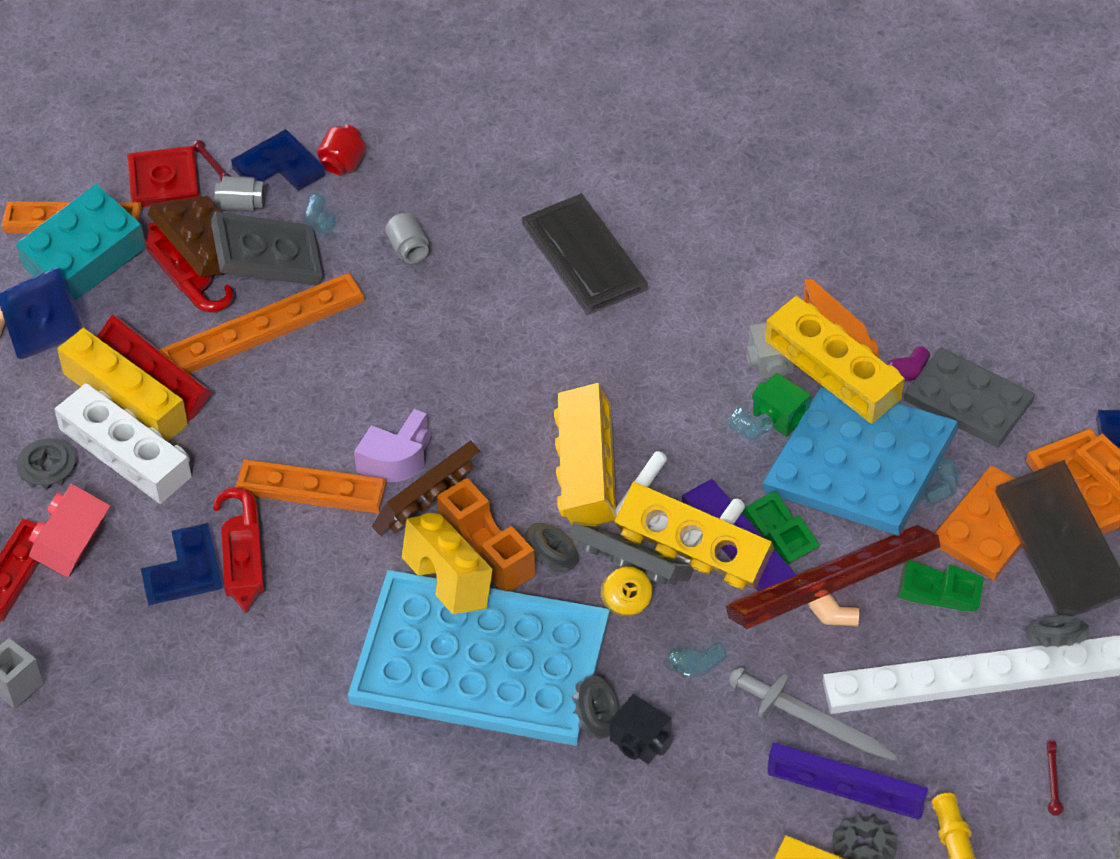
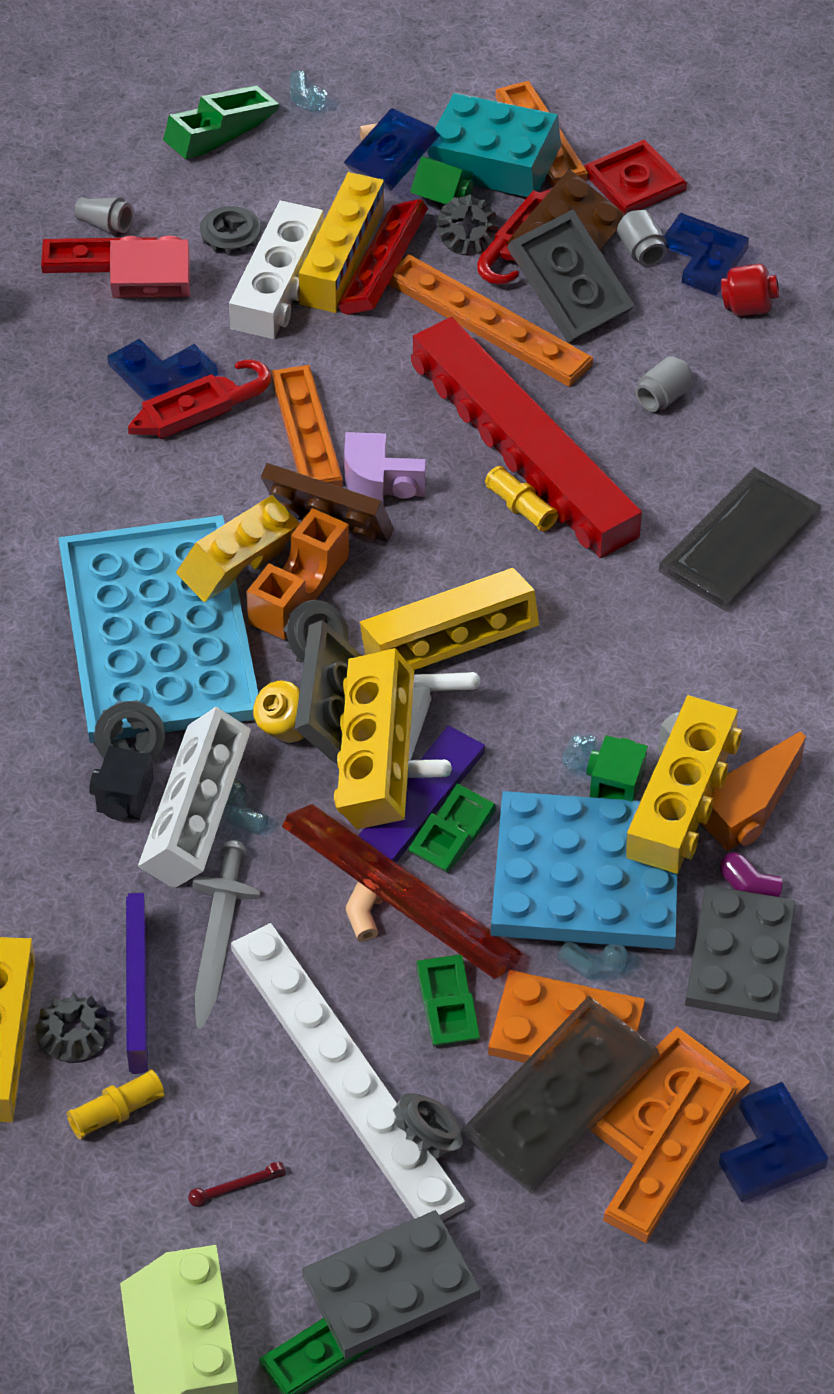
camera: 65 degrees right, 0 degrees up
(99, 295) = (441, 181): none -> green brick
(158, 312) = (453, 234): none -> dark grey gear
(199, 147) = (692, 189): dark red hinge -> none
(314, 216) = (653, 306): clear light blue arm -> none
(410, 342) = (526, 437): none -> red brick
(473, 369) = (521, 498): none -> yellow pin
(738, 700) = (194, 798): none -> white brick

